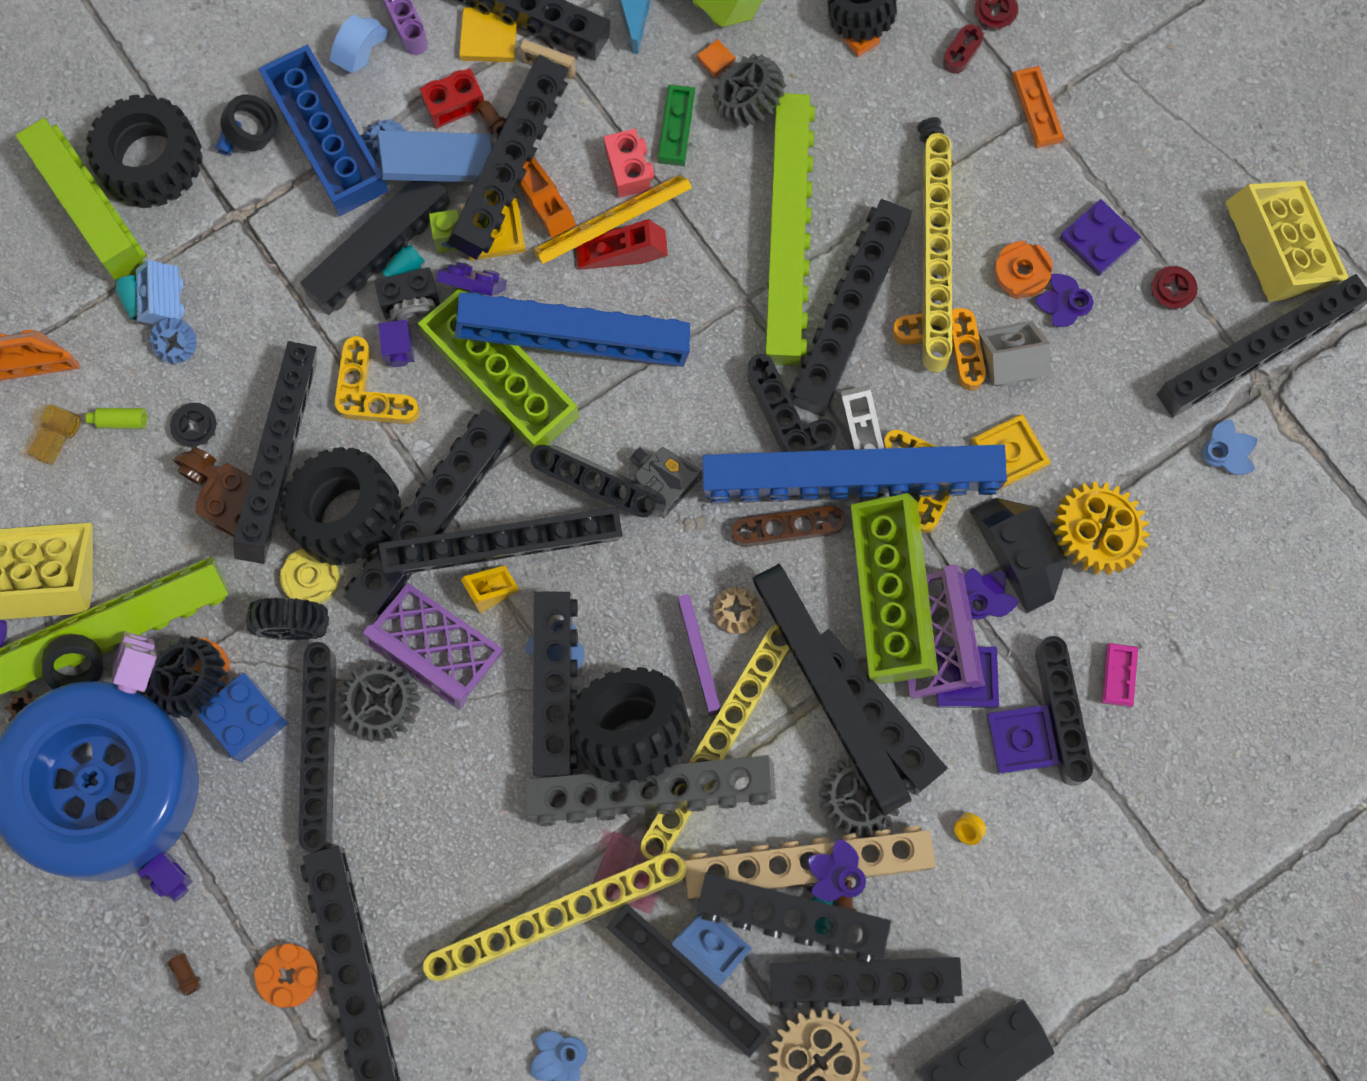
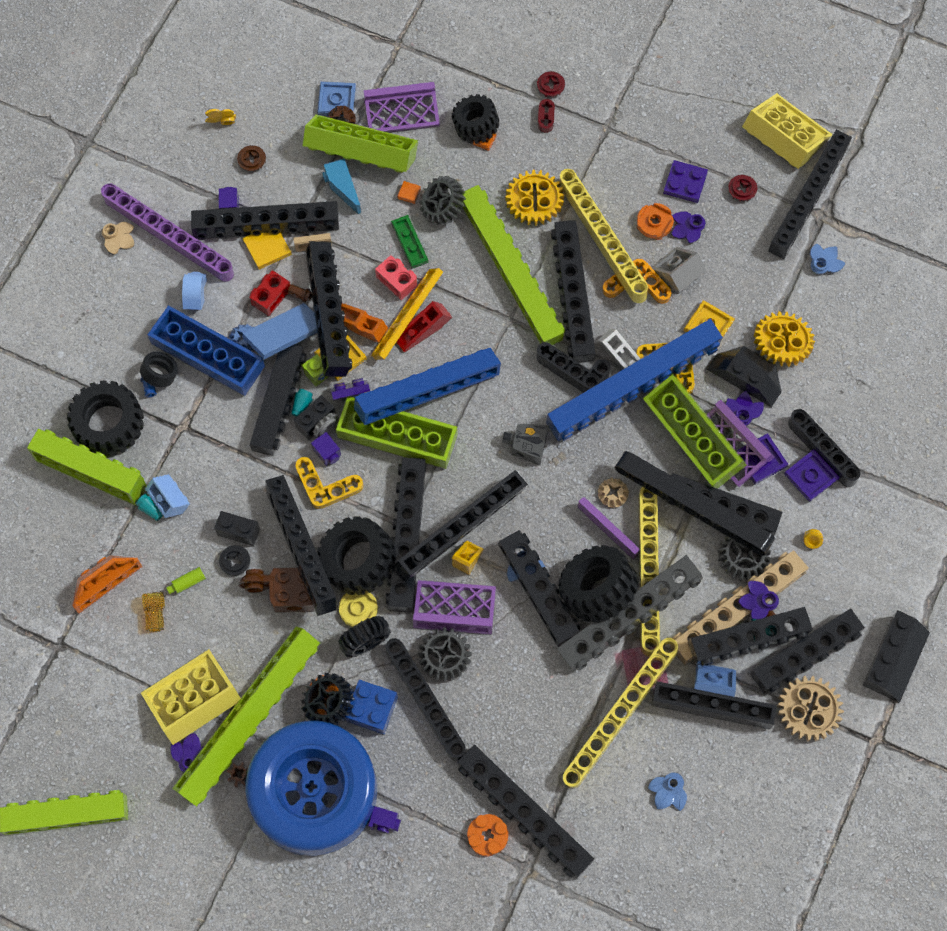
camera: 30 degrees left, 5 degrees down
(71, 644) = (245, 723): black tyre -> none
(133, 662) = (295, 707): lavender arch -> none
(184, 974) = (428, 868): reddish brown pin -> none
(186, 339) = (186, 512): medium blue gear -> none
(220, 384) = (237, 528): none -> black brick
(610, 481) = (484, 466): black beam -> none
(787, 521) = (613, 431): reddish brown beam -> none
(854, 141) = (517, 197): none -> yellow gear
(928, 127) = (556, 169): black bush -> none
(1037, 107) = (607, 127): orange tile -> none
(1119, 675) = (841, 412): dark pink plate -> none

